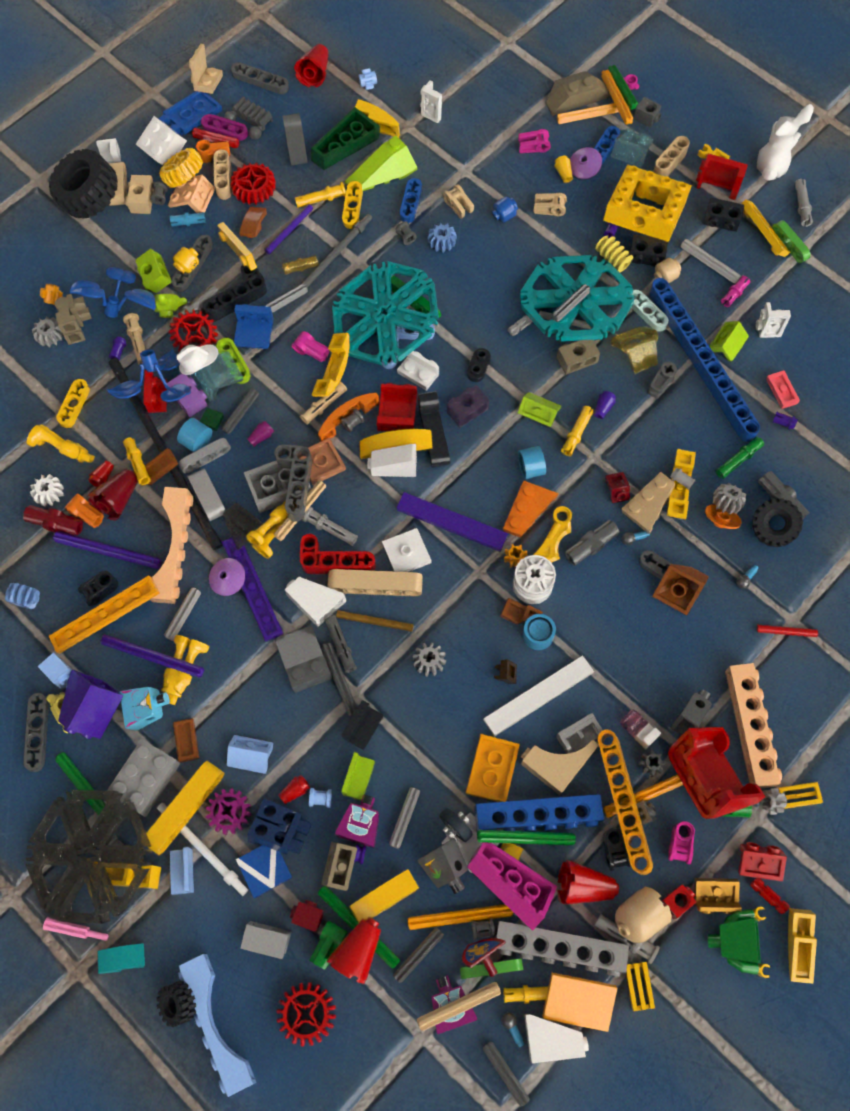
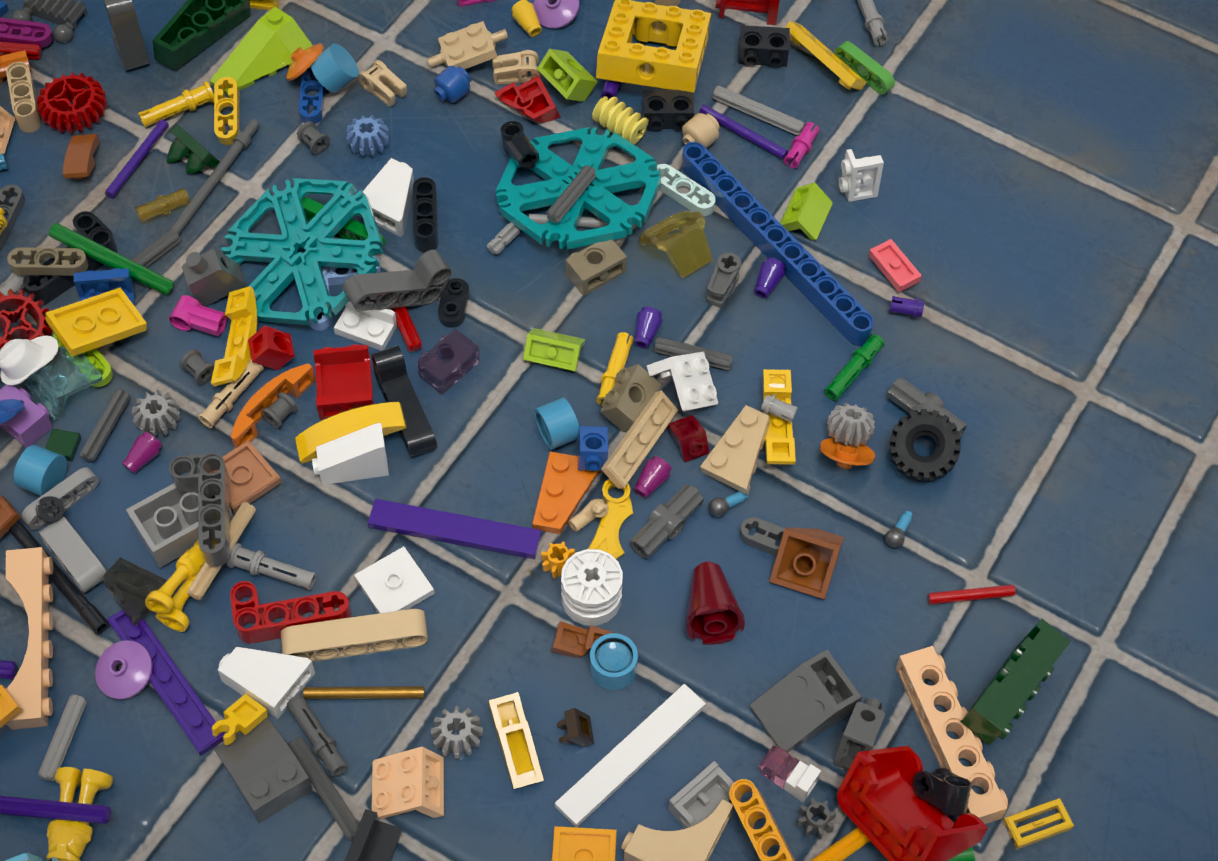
camera: 15 degrees left, 10 degrees down
(192, 466) = (55, 502): none -> black bush
(214, 288) = (37, 255): none -> dark tan beam
(237, 246) = (62, 191): yellow plate -> none
(244, 340) = (96, 321): none -> yellow plate
(261, 297) = (111, 258): none -> green axle
(280, 409) = (156, 413): none -> light grey gear
(295, 622) = (240, 716): none -> yellow plate
(304, 381) = (197, 366): none -> dark grey bush
(321, 224) = (183, 145): none -> dark green tile
(324, 321) = (212, 276): none -> dark grey torso
(354, 377) = (271, 347): none -> red brick
(392, 687) = (408, 783): none -> light nougat bracket
(408, 176) = (303, 60): none -> orange dish
(428, 186) = (335, 68): none -> dark azure piece
(443, 370) = (407, 329): none -> red axle
(445, 350) = (400, 288): none -> dark grey beam
(450, 283) = (391, 196): none -> white slope
(466, 672) = (515, 740): none -> slope
(470, 293) = (425, 214): none -> black beam
(520, 184) = (468, 46): none -> tan plate
(541, 261) = (518, 145): none -> black piece
(546, 525) = (591, 511): none -> tan arm
(552, 484) = (592, 447): none -> blue brick
(555, 228) = (530, 100): none -> red slope
(583, 215) = (567, 75): none -> lime brick
(583, 453) = (629, 396): none -> dark tan brick
(584, 483) = (639, 439): none -> tan tile
(588, 510) = (652, 476): none -> magenta cone
(611, 607) = (712, 606): none -> dark red cone
(626, 448) = (690, 378): none -> white bracket
(632, 428) = (677, 348): none -> dark grey axle
(660, 684) = (806, 702): none -> dark grey slope
(694, 383) = (769, 276): none -> dark purple cone
(696, 274) = (745, 132): none -> dark purple bar
(740, 763) = (943, 790): none -> black piece
(774, 801) = (1003, 837): light grey gear -> none
(804, 699) = (1015, 683): none -> dark green wedge

